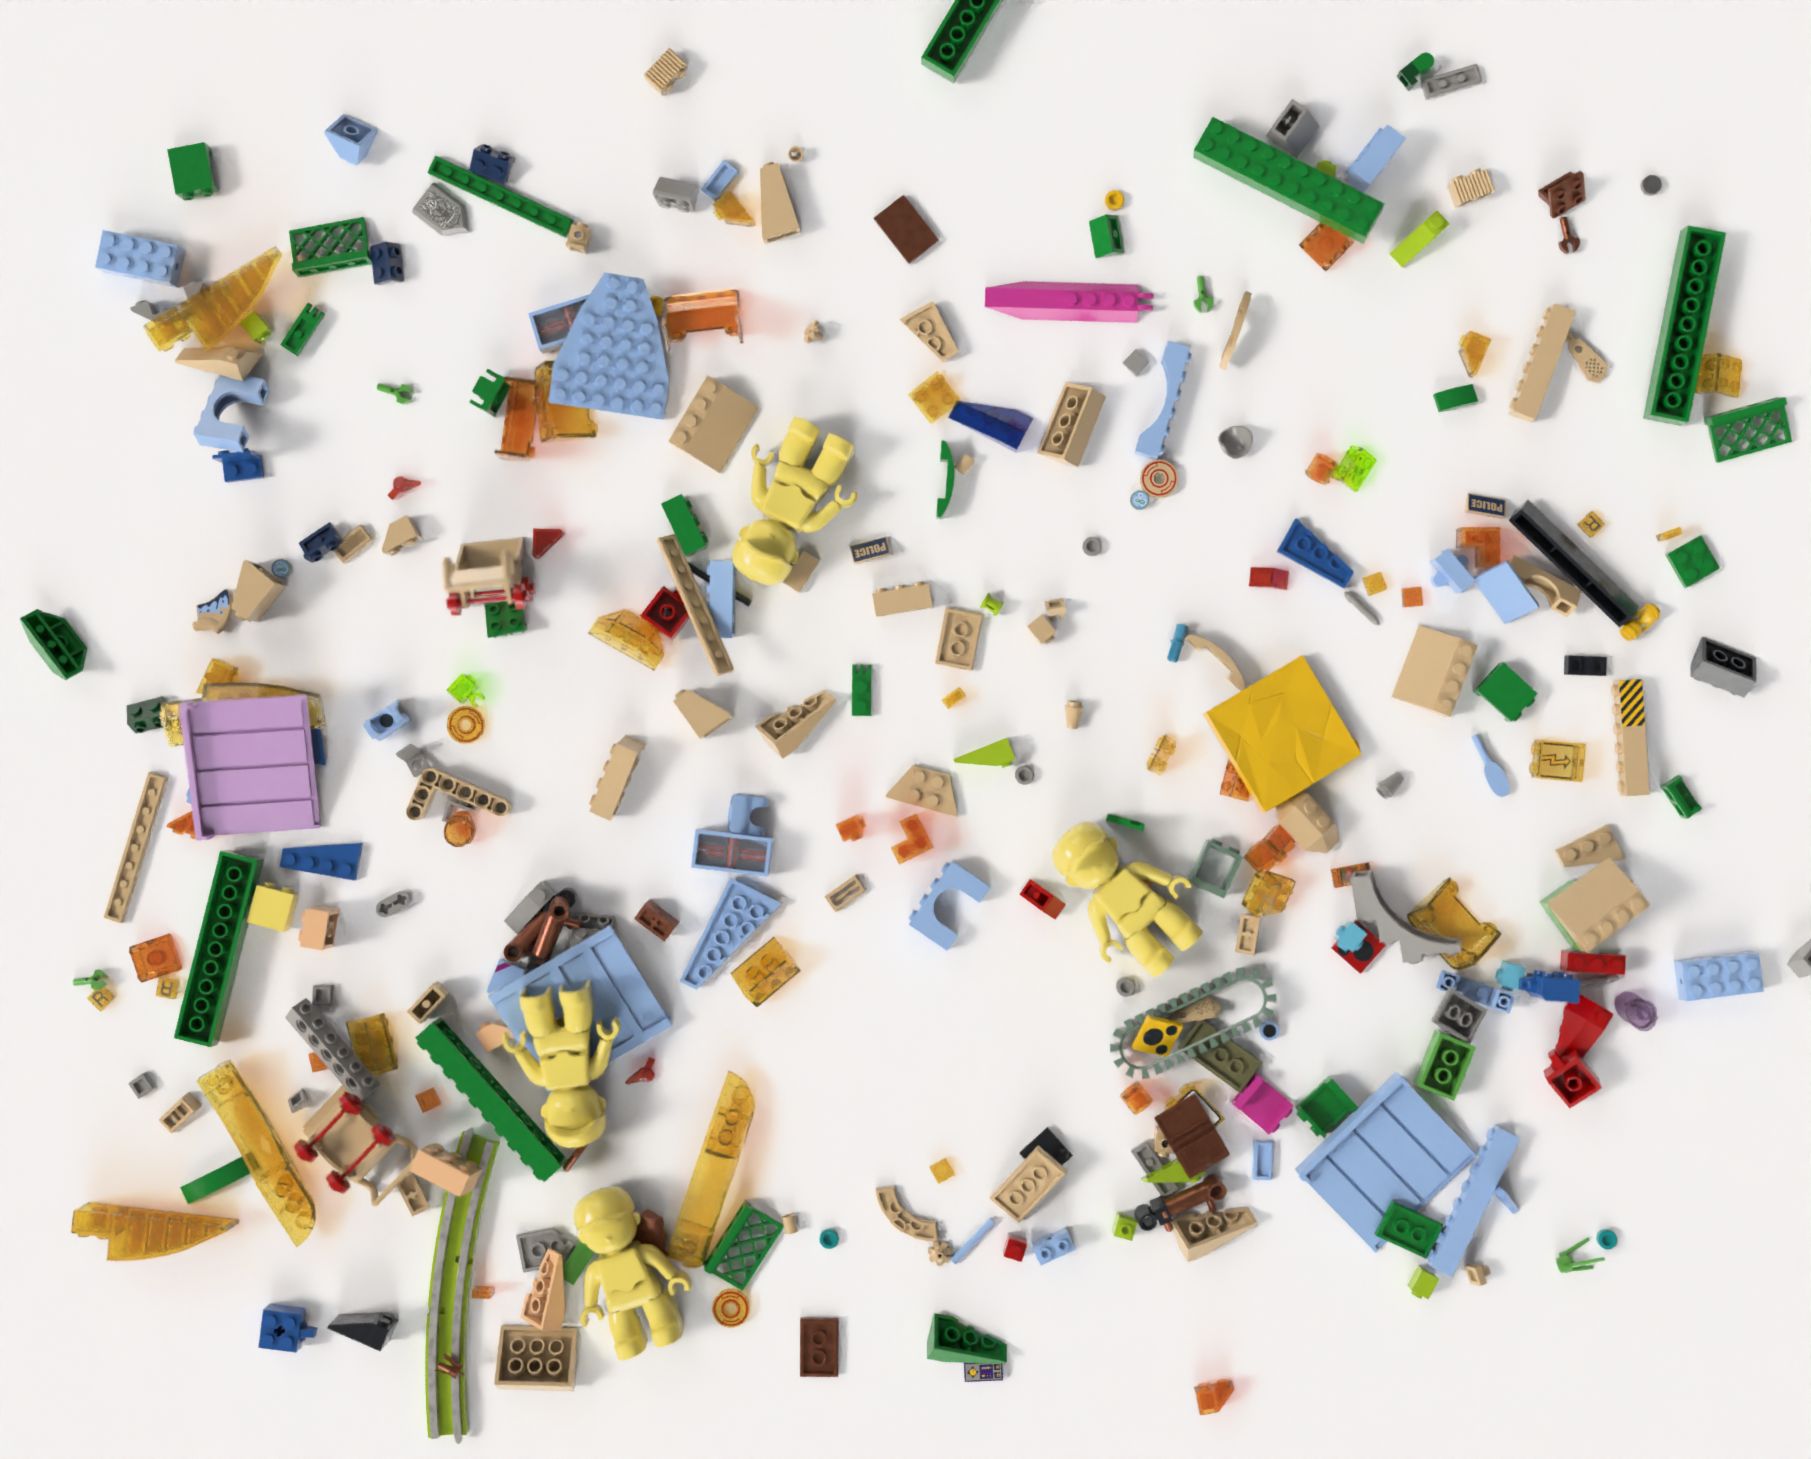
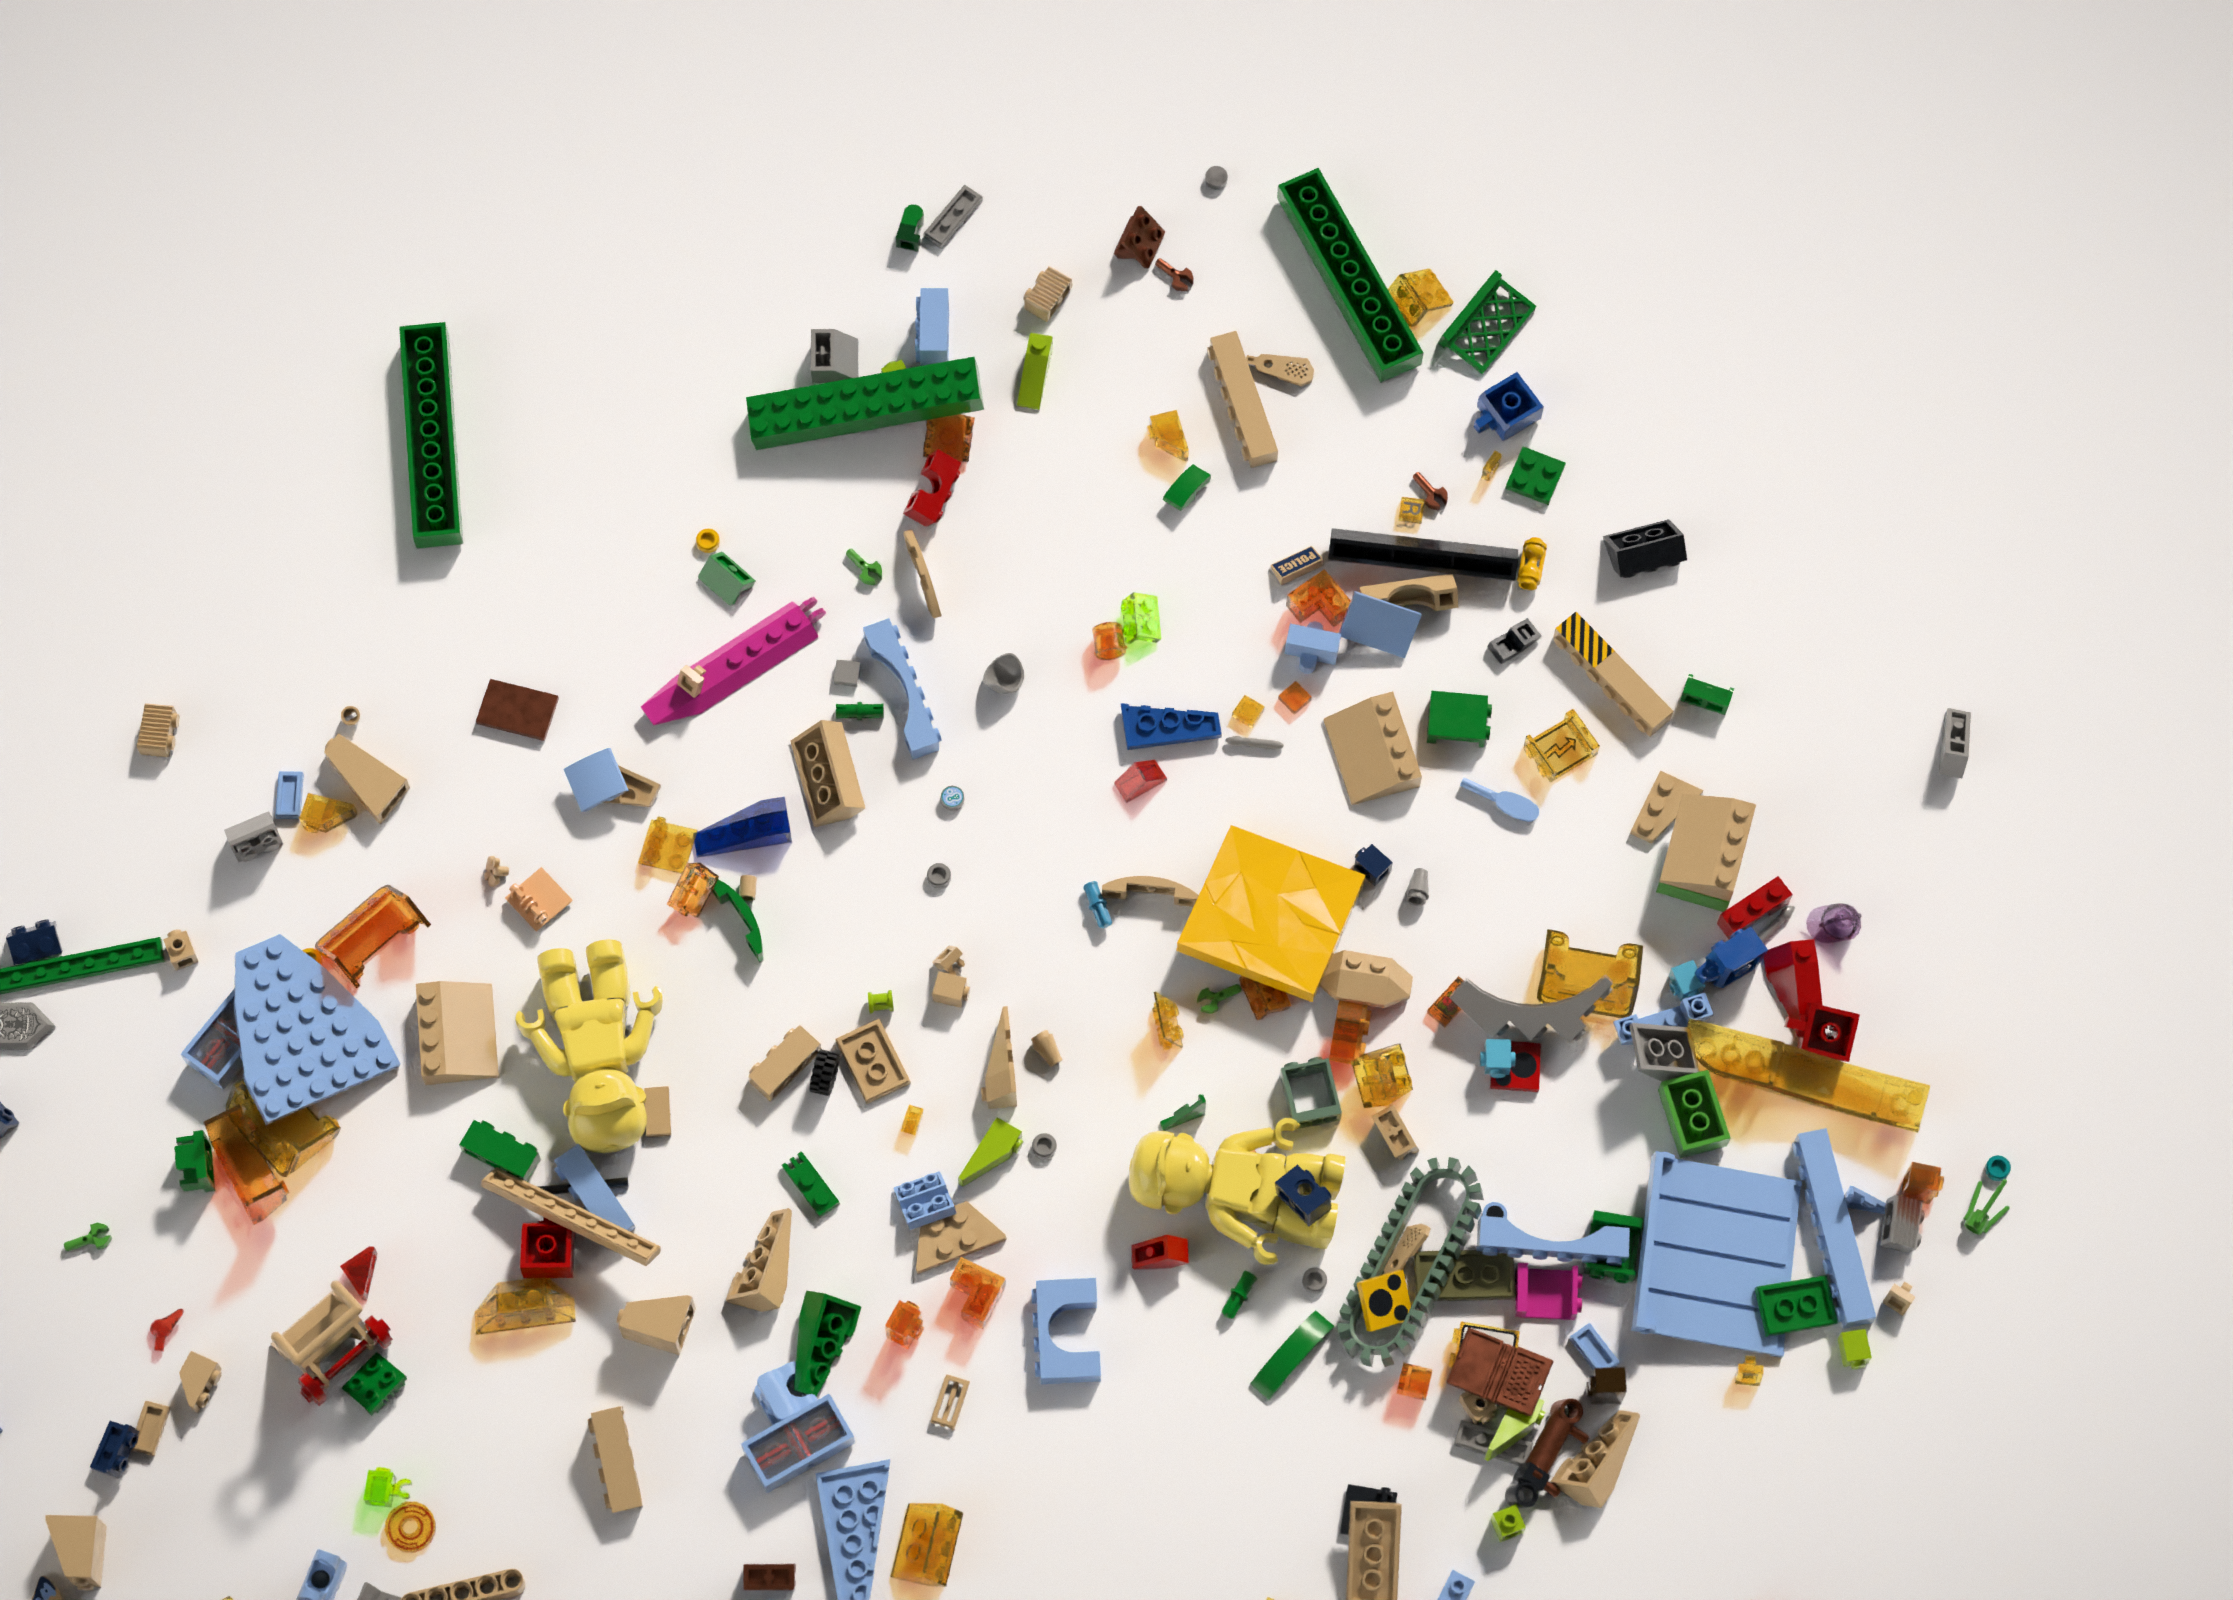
camera: 40 degrees left, 20 degrees down
(281, 568) = (89, 1507): tile -> none
(799, 791) = (822, 1331): none -> green wedge
(827, 372) = (538, 899): none -> light nougat hinge
(870, 550) = (714, 1040): slope -> none
(919, 319) = (595, 779): none -> light blue slope
(921, 626) = (824, 1072): none -> black tyre
(923, 755) = (924, 1200): none -> light blue slope
(927, 441) = (693, 889): none -> clear orange hinge
(1030, 295) = (691, 679): none -> tan tile
(1030, 711) = (1000, 1075): none -> tan wedge
(1071, 961) = (1238, 1295): none -> green axle
(1076, 1022) = (1291, 1354): none -> green slope
(1124, 395) = (860, 711): none -> green pin
(1155, 953) = (1308, 1207): none -> dark blue brick
(1158, 467) = (955, 751): tan tile -> none
(1206, 760) = (1216, 997): none -> bright green bar
(1251, 1192) = (1607, 1385): none -> dark brown brick
(1302, 267) = (942, 472): none -> red arch
(1320, 1103) = (1501, 1236): none -> light blue arch
(1346, 1247) = (1749, 1372): none -> clear yellow tile
(1372, 748) = (1372, 863): none -> dark blue brick
(1517, 1230) = (1902, 1224): none -> light grey brick
(1536, 1099) = (1808, 1076): none -> clear yellow slope
(1550, 1217) = (1922, 1182): none -> clear orange brick
(1614, 521) = (1431, 492): none -> copper bar
(1703, 498) = (1508, 407): none -> blue hinge
(1718, 976) = (1884, 832): light blue brick -> none

